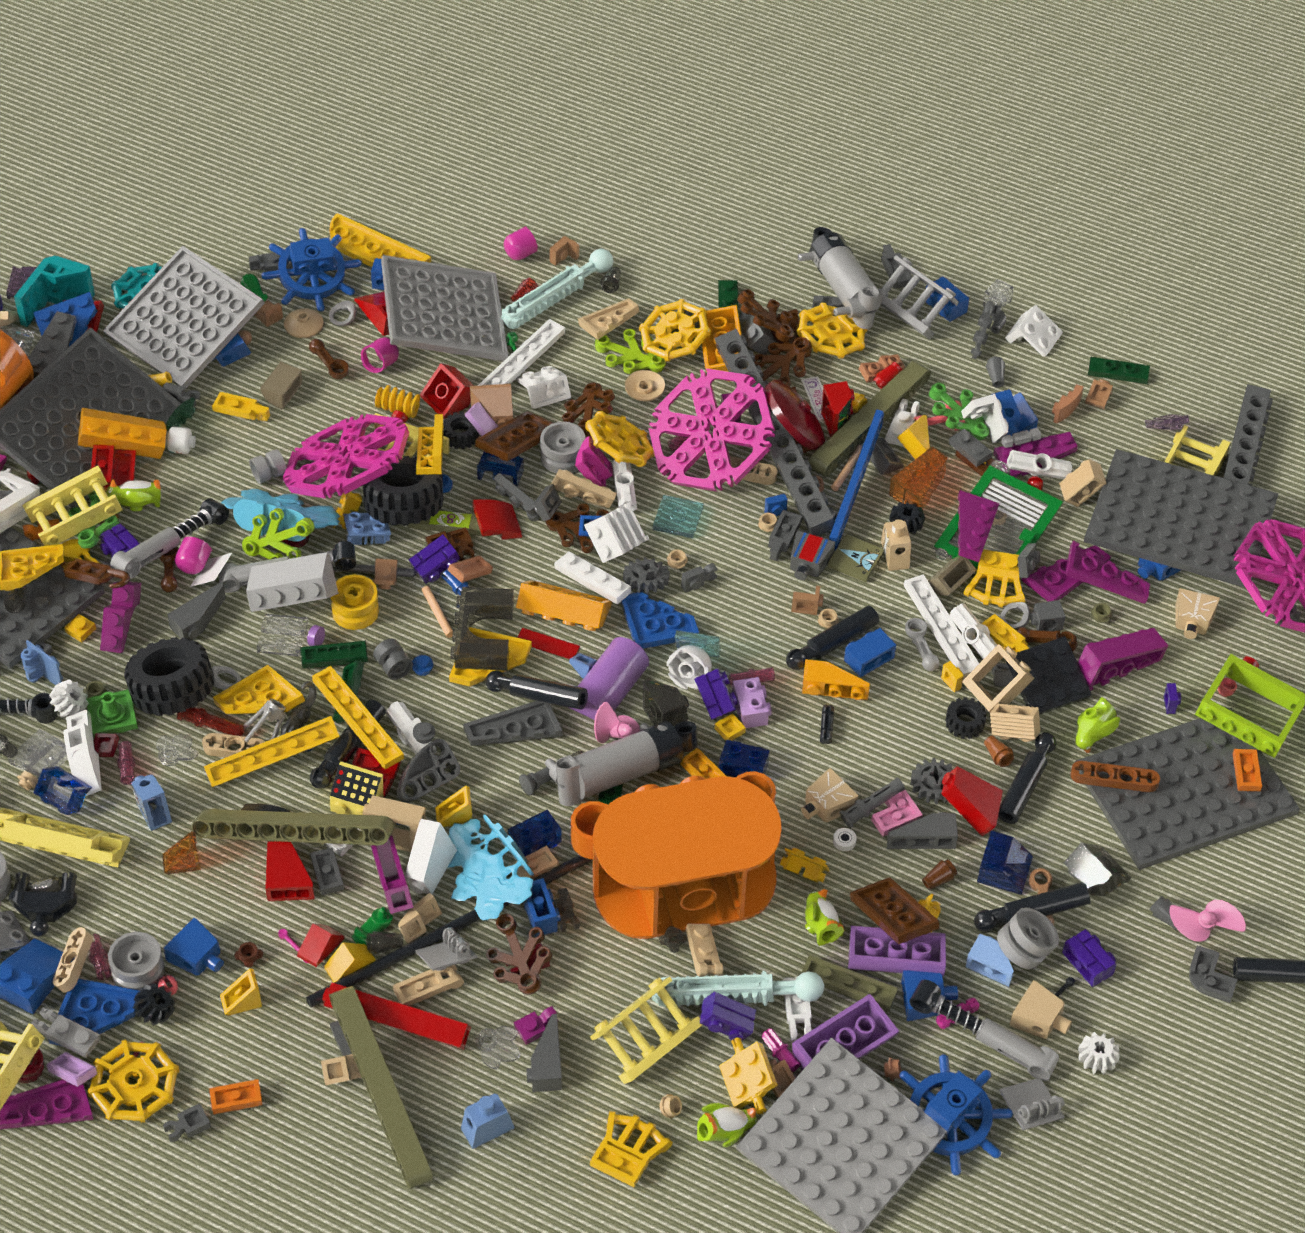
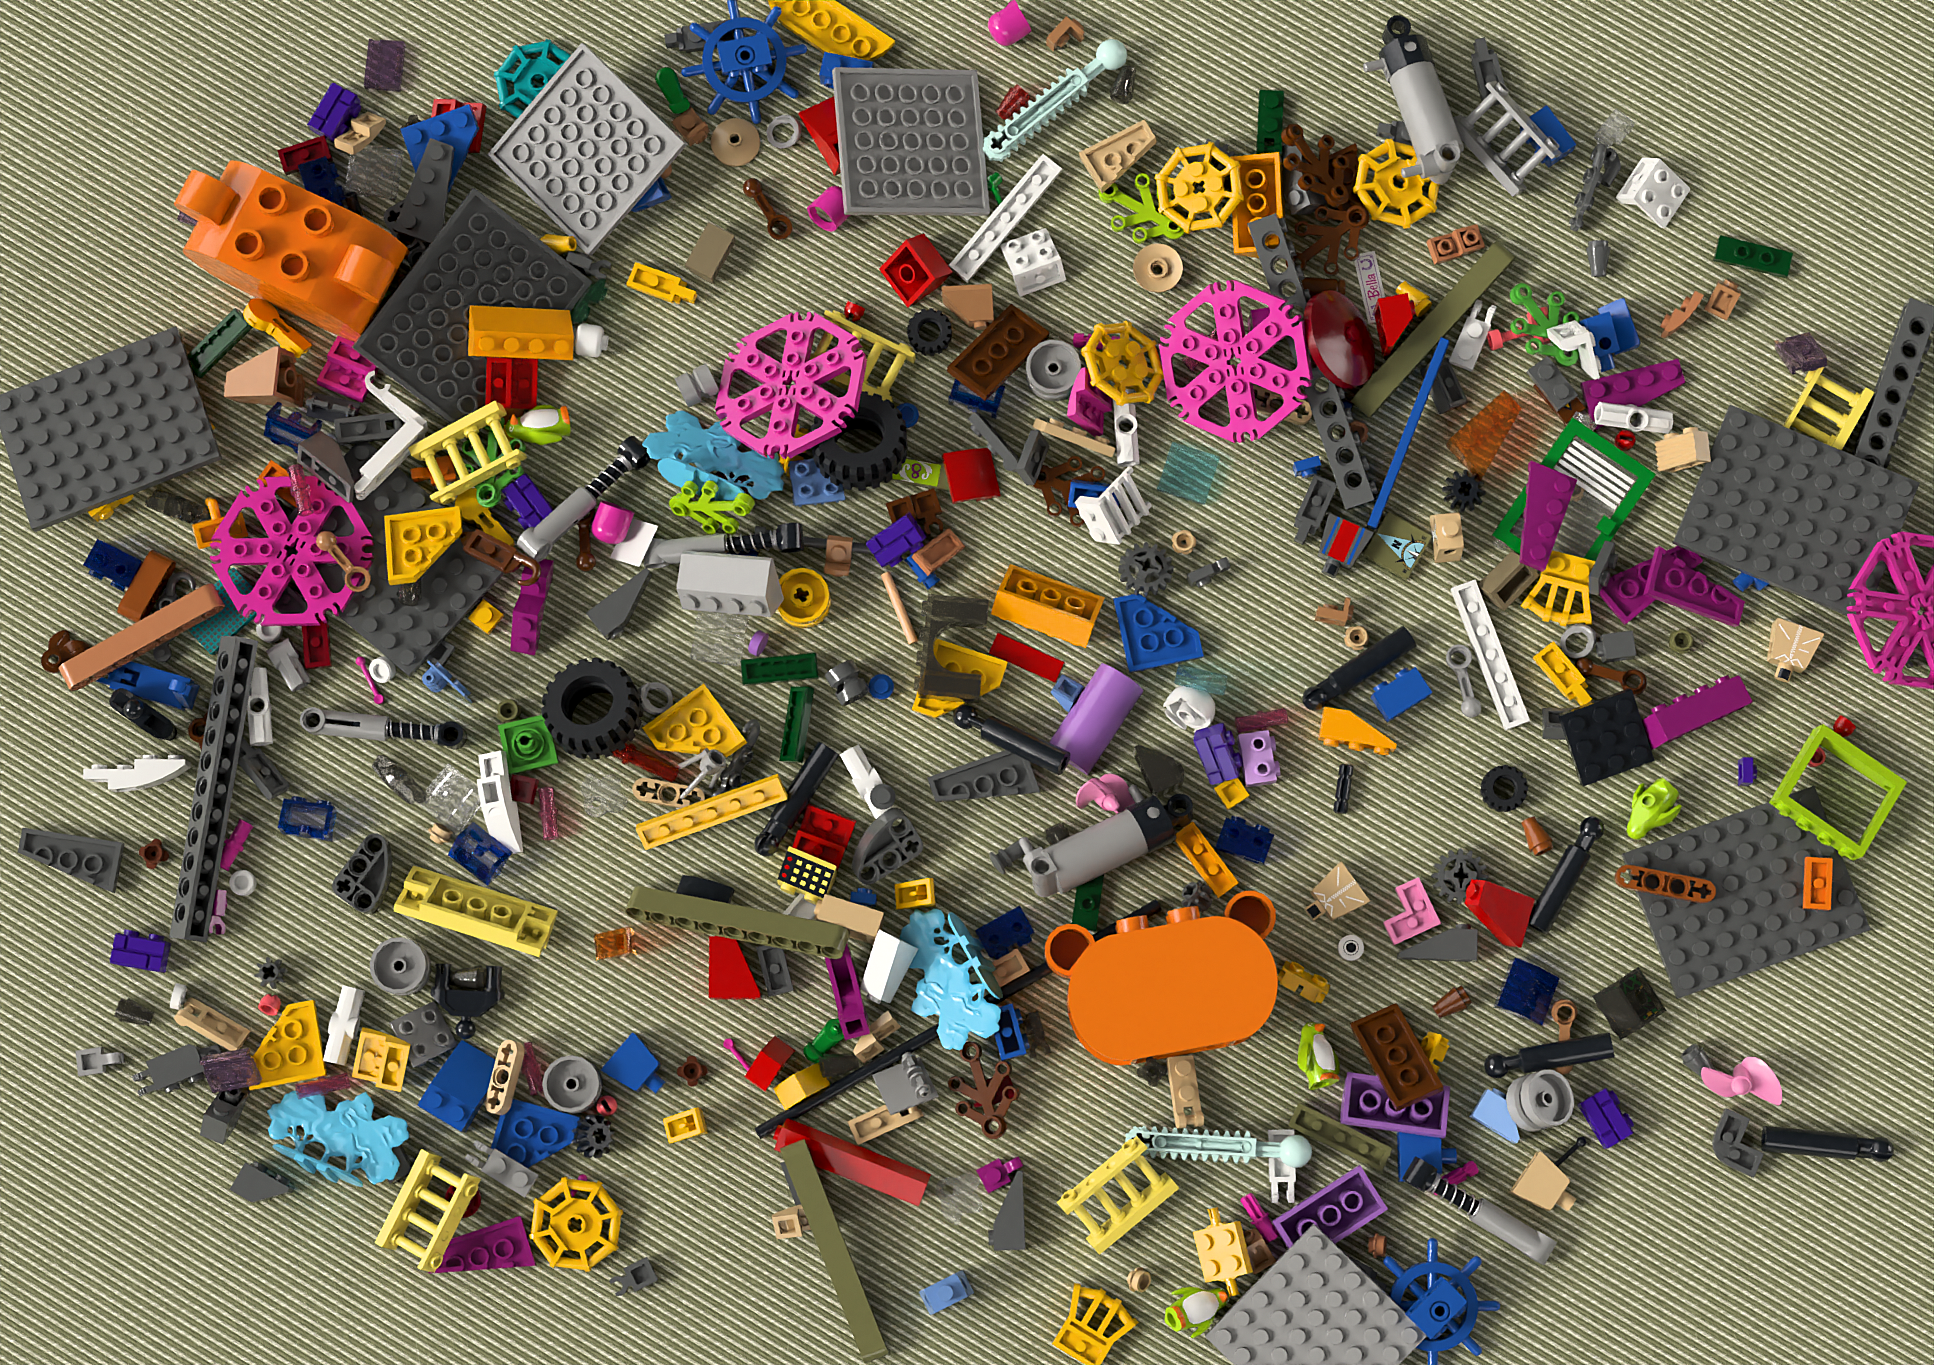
camera: 10 degrees right, 30 degrees up
(52, 275) = (423, 76): teal bracket -> none
(68, 698) = (480, 732): white gear -> none
(71, 1069) = (511, 1211): lavender tile -> none
(147, 791) = (577, 870): medium blue torso -> none
(235, 1096) = (683, 1247): orange plate -> none
(358, 717) = (807, 775): yellow plate -> none
(393, 401) = (853, 286): yellow piece -> none
(434, 450) = (900, 379): yellow fence -> none
(480, 419) = (956, 328): lavender tile -> none
(590, 395) = (1087, 302): reddish brown plant -> none
(593, 577) = (1082, 569): white plate -> none
(727, 1016) = (1205, 1181): dark purple brick -> none
(767, 522) = (1295, 483): tan plate -> none
(847, 469) = (1399, 404): light nougat bar -> none
(863, 807) = (1371, 914): dark grey pin -> none
(887, 374) = (1460, 264): red cone -> none
(916, 437) = (1486, 367): yellow slope -> none
(952, 676) = (1495, 729): yellow plate -> none
(968, 625) = (1528, 672): white piece -> none
(1011, 691) = (1526, 756): tan window -> none
(1015, 722) = (1559, 805): tan brick -> none
(1021, 437) = (1618, 374): light grey axle -> none
(1032, 1103) = (1521, 1294): light grey hinge -> none
(1098, 1053) = (1609, 1238): white gear -> none

